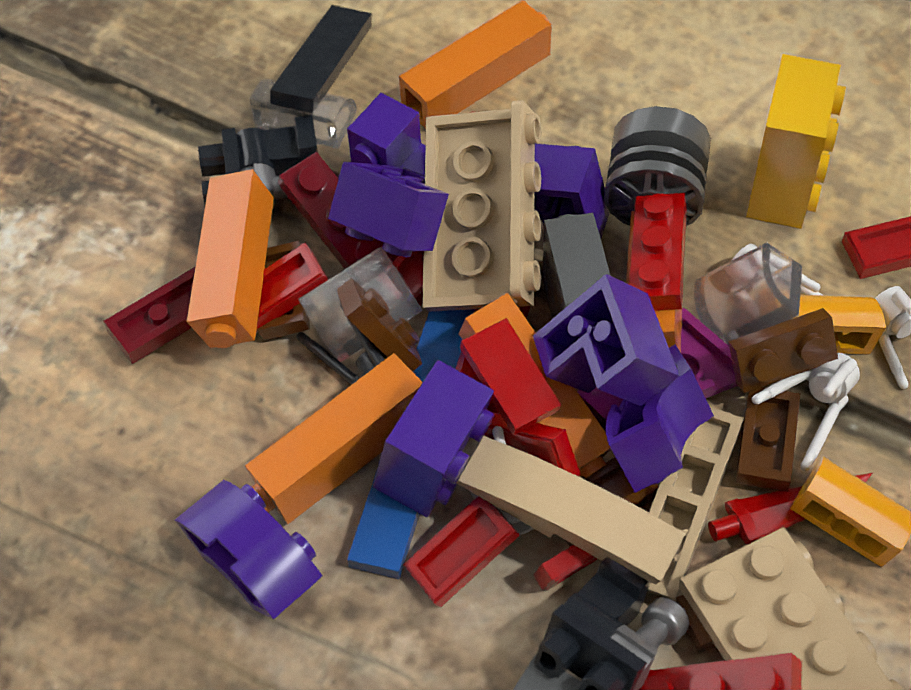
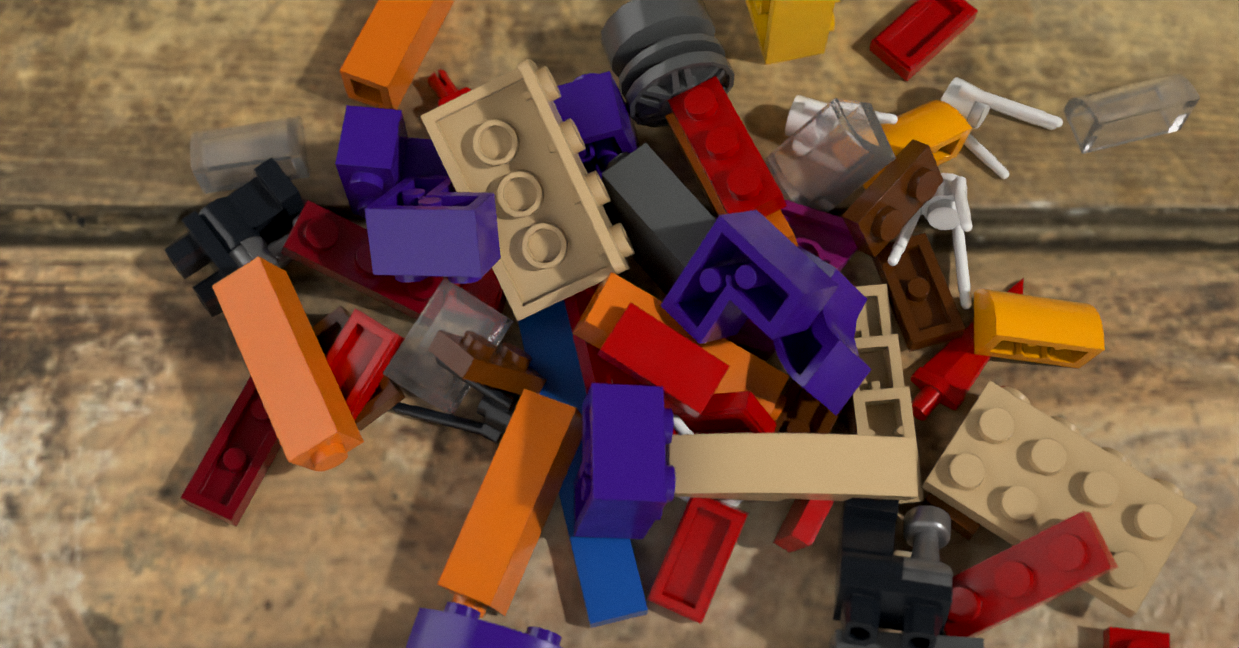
camera: 30 degrees left, 10 degrees up
(320, 59) = (239, 86): black tile -> none

